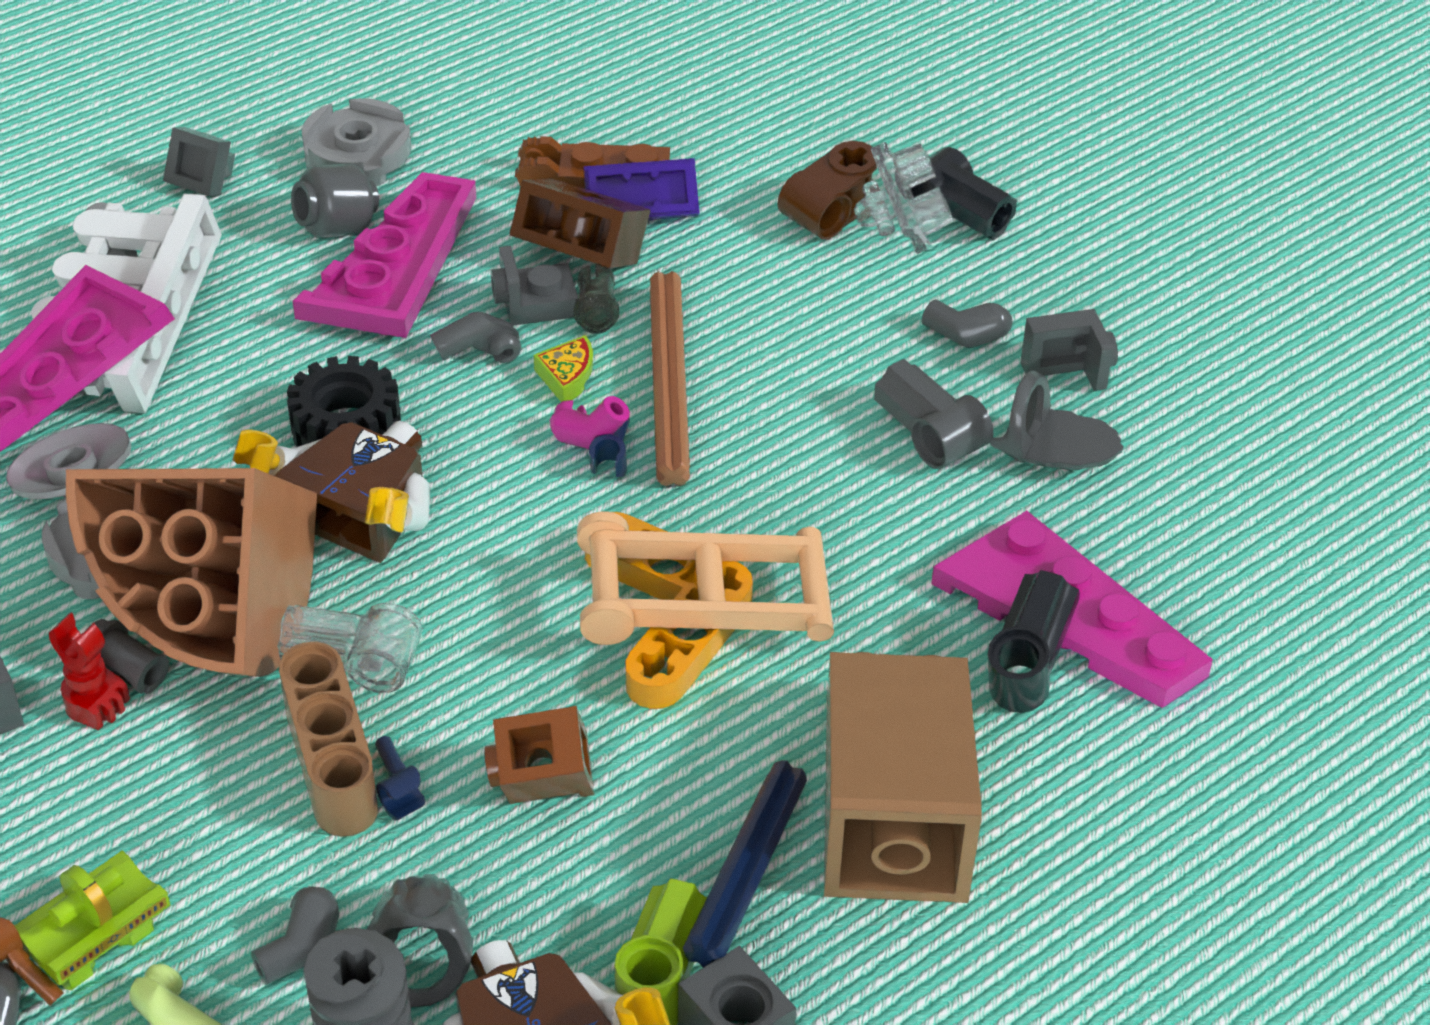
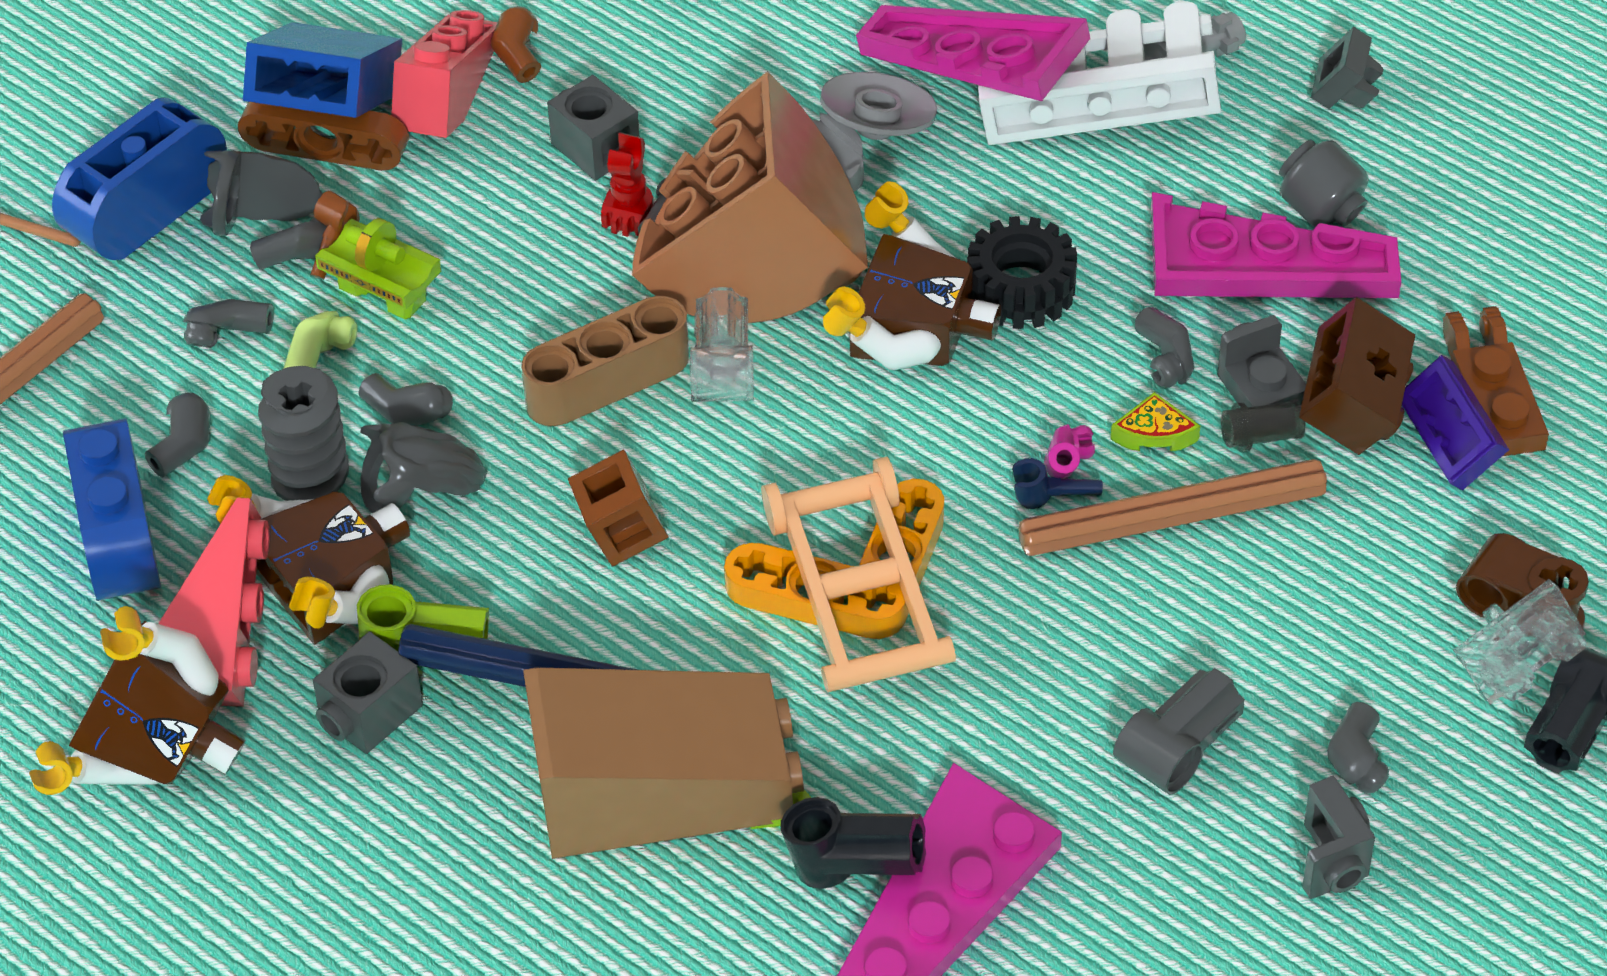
camera: 80 degrees right, 5 degrees up
(365, 134) = (1457, 204): light grey plate -> none
(400, 790) = (575, 431): dark blue hand -> none
(1054, 436) = (1184, 844): dark grey piece -> none

